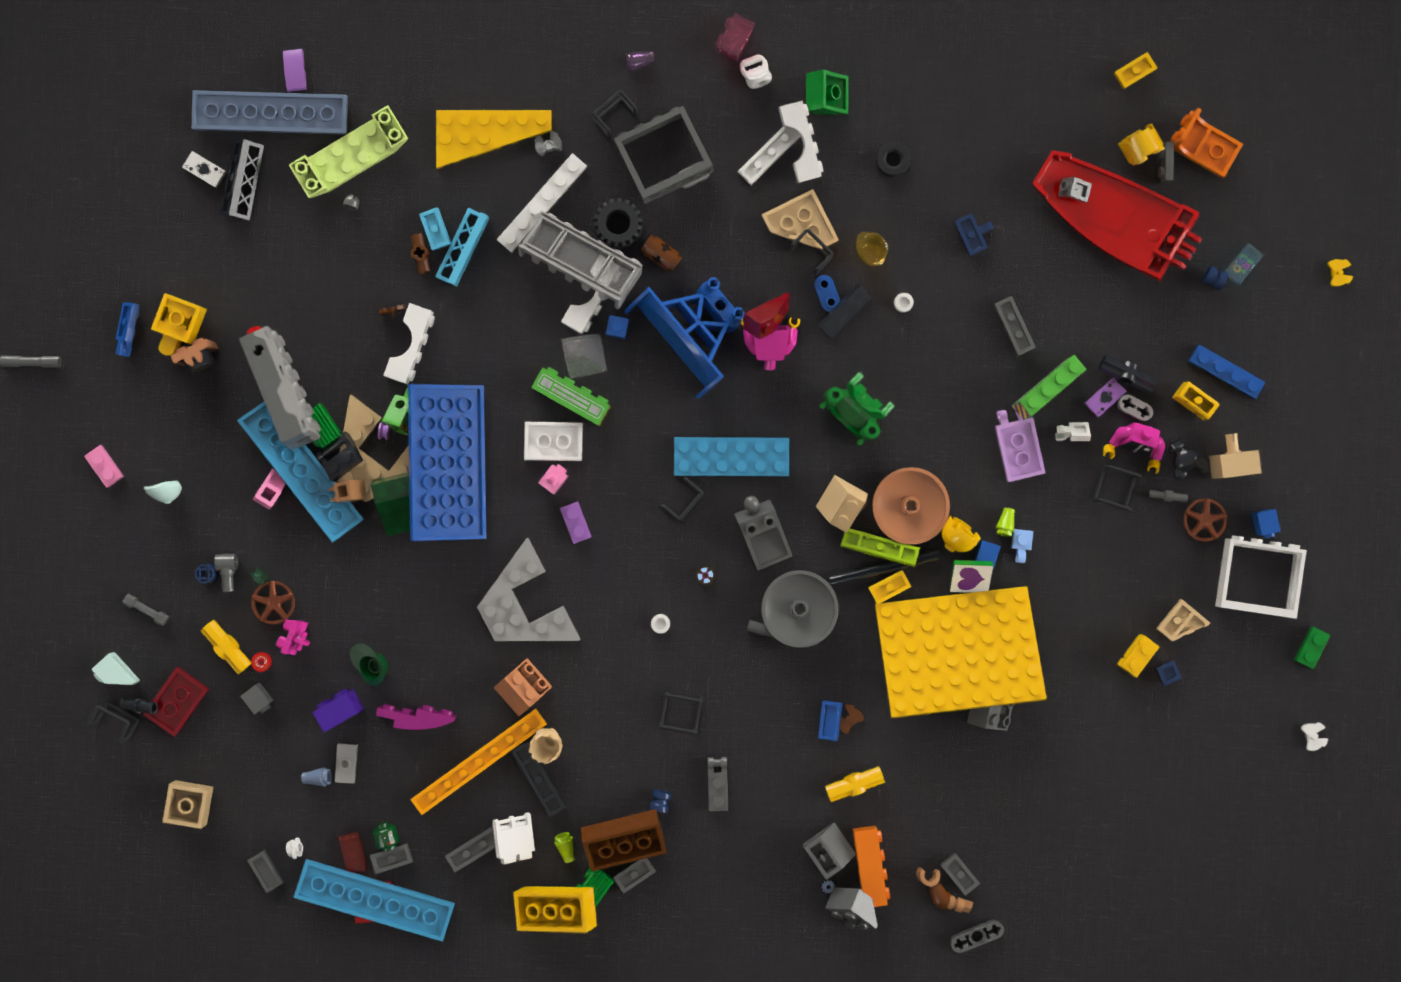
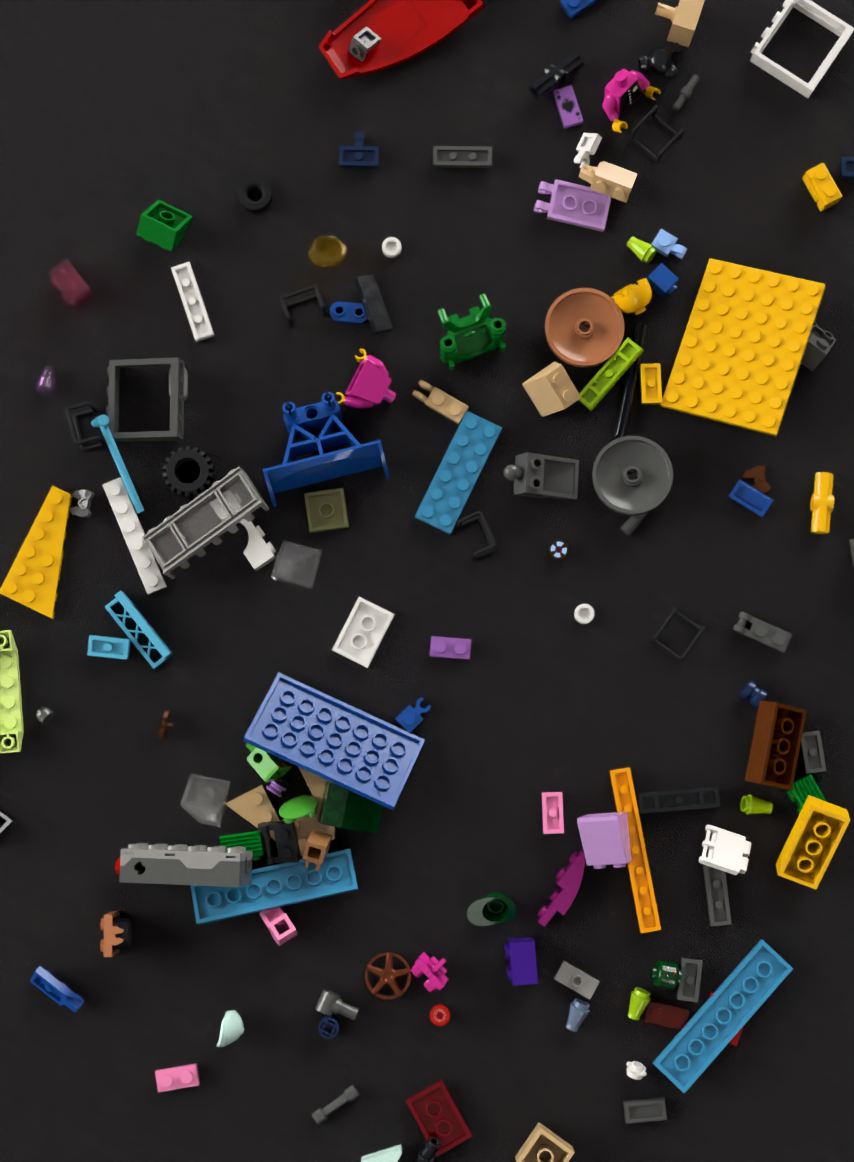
camera: 65 degrees left, 5 degrees down
(43, 361) = (35, 1112): dark grey piece -> none
(177, 322) = (75, 936): yellow brick -> none
(226, 647) = (409, 1042): yellow piece -> none
(257, 699) = (474, 1036): dark grey brick -> none
(259, 576) = (356, 976): clear green bush -> none
(346, 376) = (206, 799): none -> clear slope
(351, 824) = (638, 1002): none -> lime cone
(376, 459) = (298, 807): none -> bright green dish
(402, 367) = (223, 741): white arch -> none
(418, 244) = (134, 674): reddish brown axle -> none
(474, 732) = (605, 839): none -> lavender slope
(476, 677) = (552, 812): none -> bright pink plate
(500, 517) = (411, 717): none -> blue plate
(504, 613) = (504, 757): light grey wing -> none
(523, 687) = (583, 772): nougat slope -> none
(545, 745) = (650, 777): tan hair -> none
(554, 478) = (399, 647): bright pink brick -> none
(568, 395) = (329, 594): bright green brick -> none
(617, 327) = (285, 519): blue brick -> none
(625, 127) = (102, 421): none -> medium azure bar
(643, 358) = (326, 510): none -> olive tile
(654, 247) = (229, 451): reddish brown piece -> none
(757, 76) = (117, 280): white piece -> none
(766, 317) = (344, 376): dark red slope -> none
(786, 413) = (442, 402): none -> tan hinge
(794, 117) = (173, 262): white arch -> none
(800, 214) = (264, 306): tan plate -> none
(971, 576) = (676, 303): tile -> none
(1048, 387) = (535, 150): bright green brick -> none
(1054, 465) = (609, 180): none -> tan hinge
(1137, 404) = (588, 81): light grey beam -> none
(1181, 621) = (808, 134): tan wing -> none
(1195, 400) = (610, 26): yellow brick -> none
(1205, 520) = (724, 69): copper wheel -> none
(1266, 523) = (753, 16): blue brick -> none

